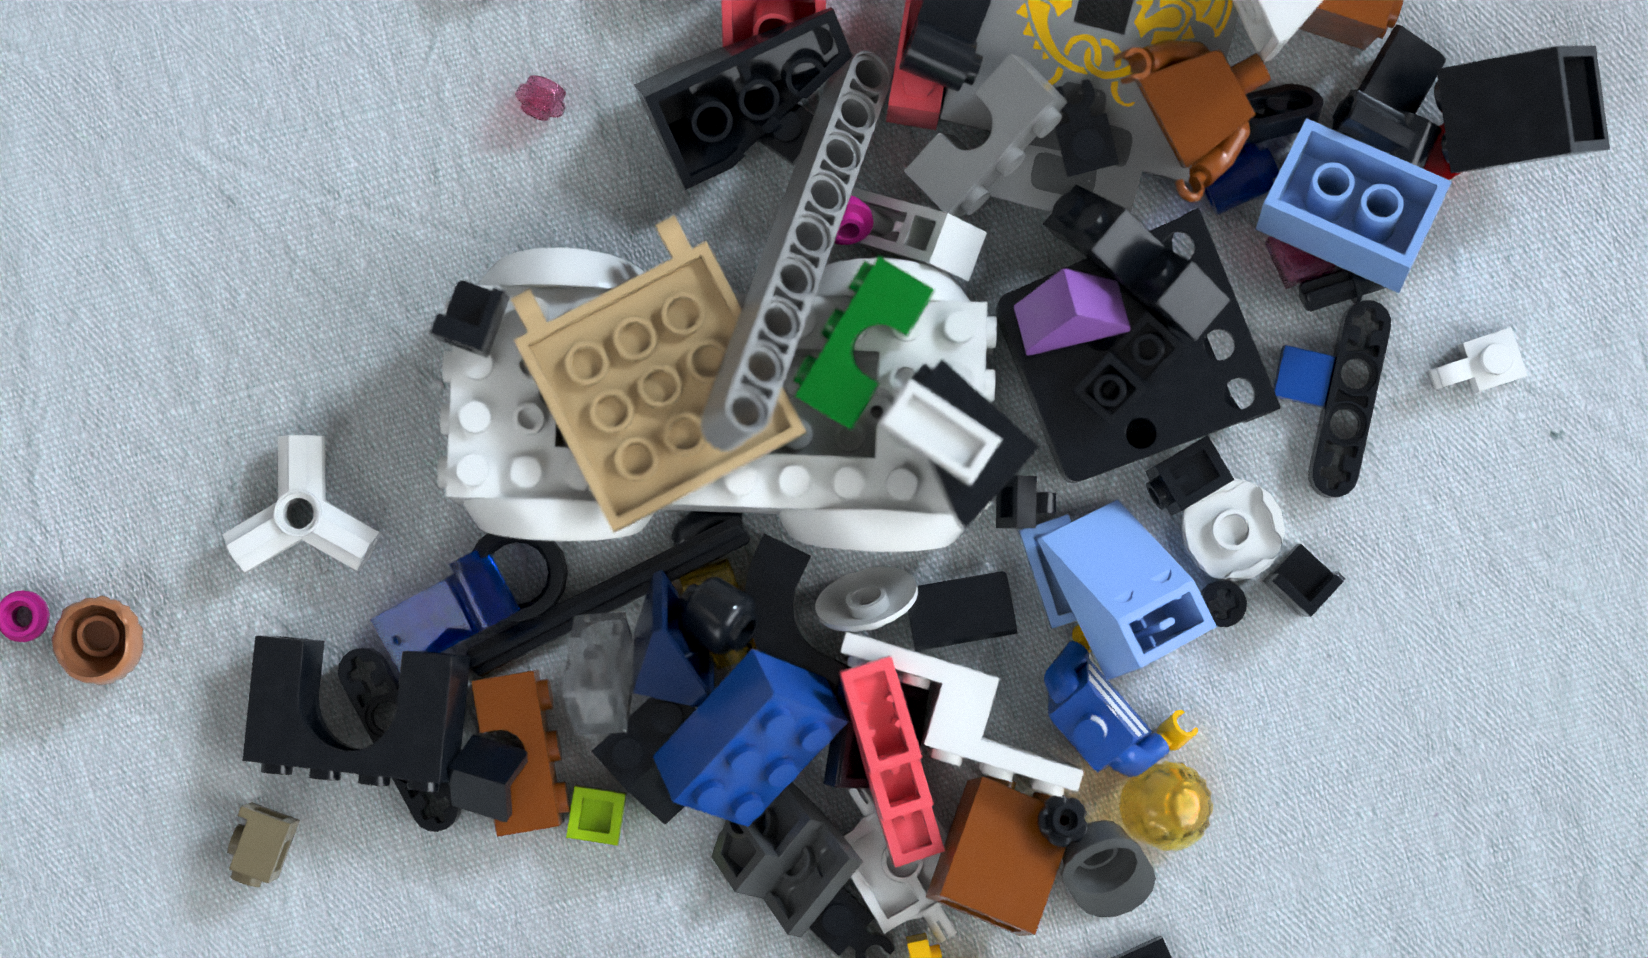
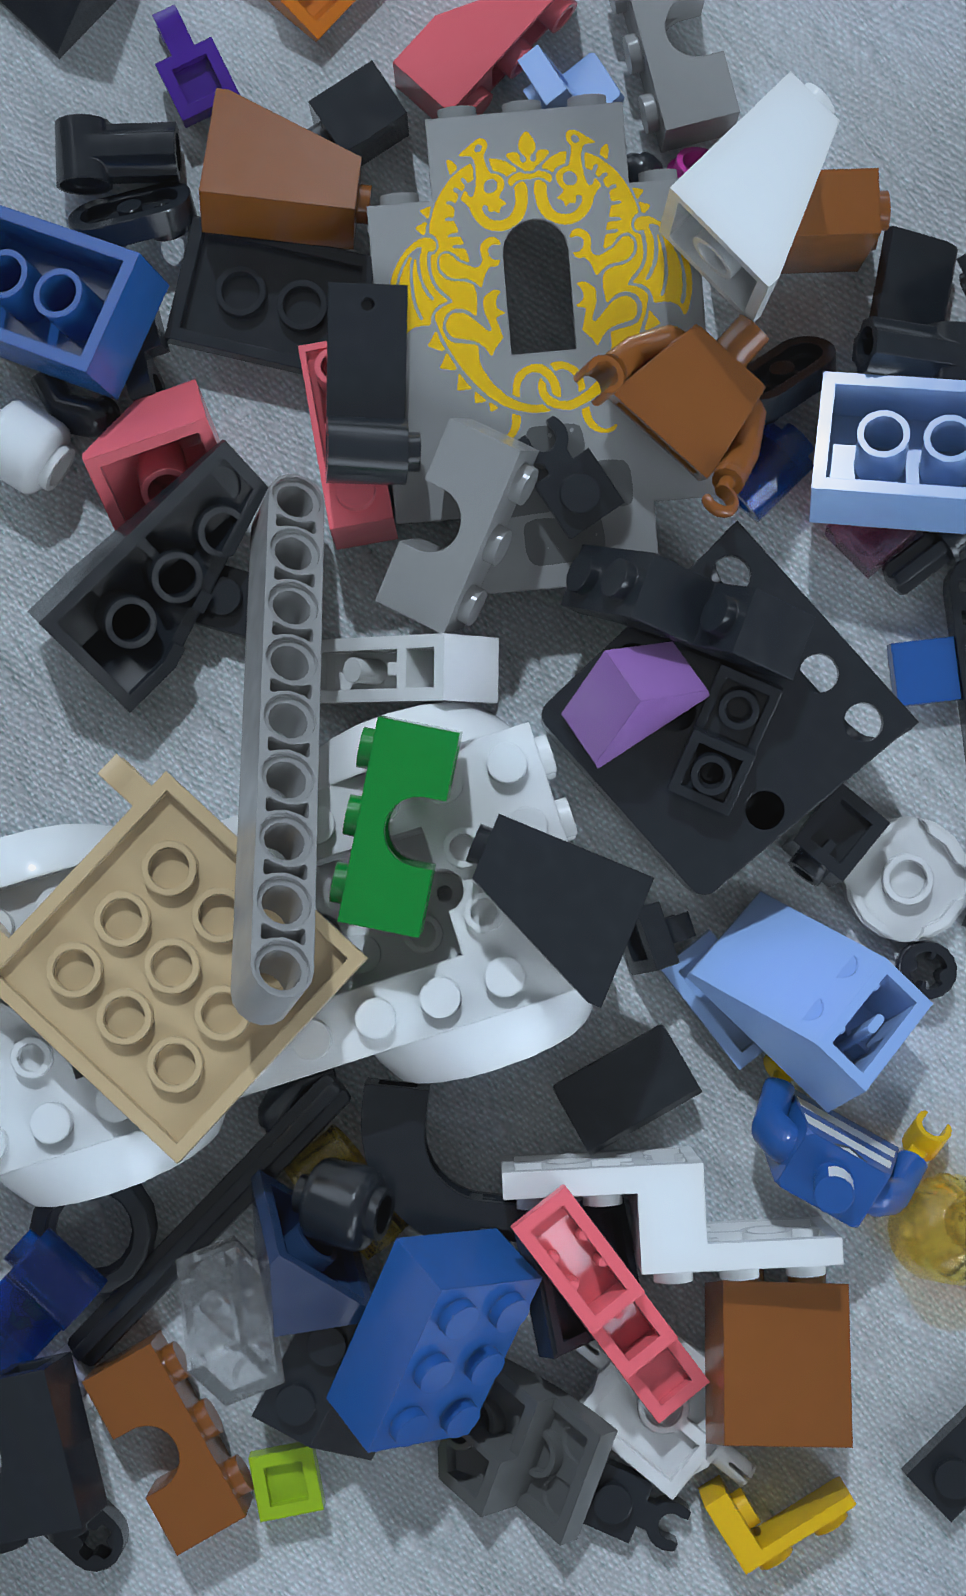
camera: 20 degrees left, 0 degrees up
(483, 777) = (135, 1489): black panel -> none
(855, 224) = (339, 682): dark pink plate -> none
(866, 599) = (512, 1116): white dish -> none
(939, 432) = (528, 904): white tile -> none
(1050, 825) = (820, 1305): black plate -> none
(1107, 871) = (902, 1330): dark grey piece -> none

